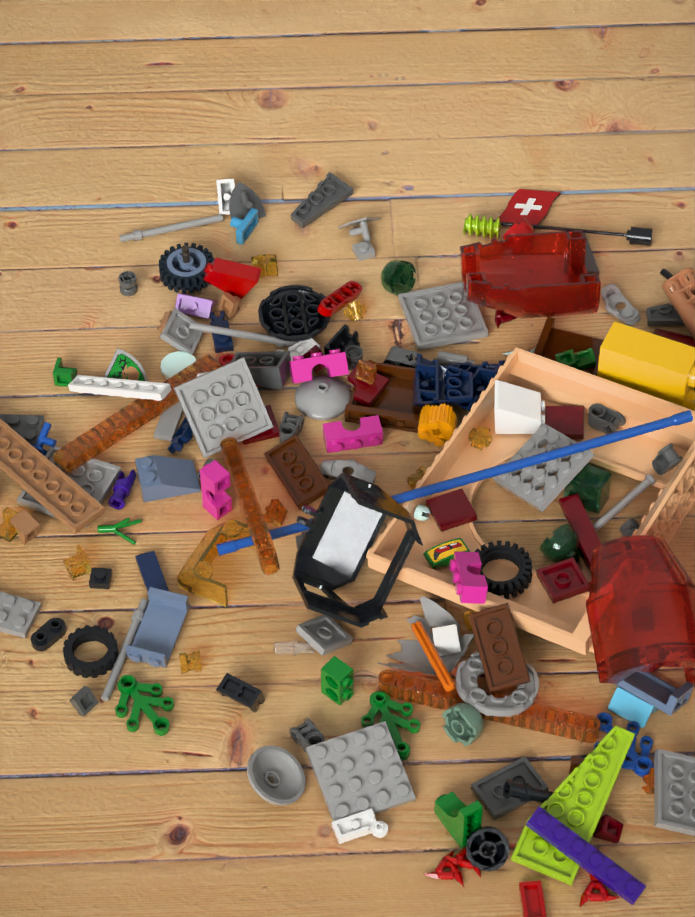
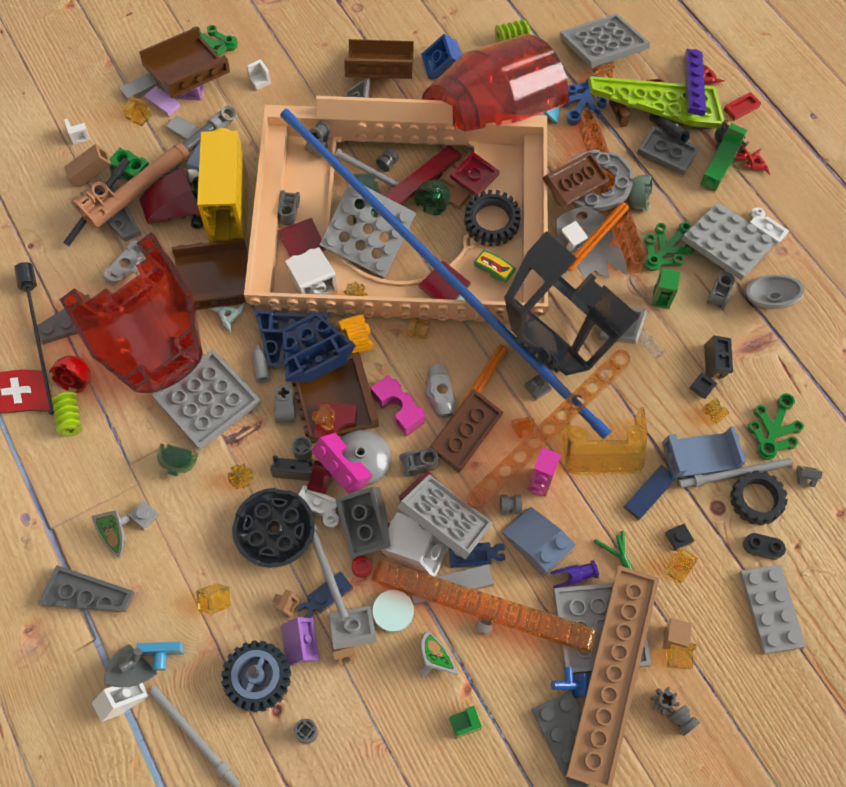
camera: 120 degrees left, 15 degrees up
(119, 387) = (468, 640): white plate -> none
(220, 667) = (703, 385): none -> black plate
(231, 276) = (257, 609): red slope -> none
(339, 298) = (254, 494): red beam -> none
(466, 574) = (523, 225): dark pink arch -> none
(579, 360) = (213, 268): green slope -> none

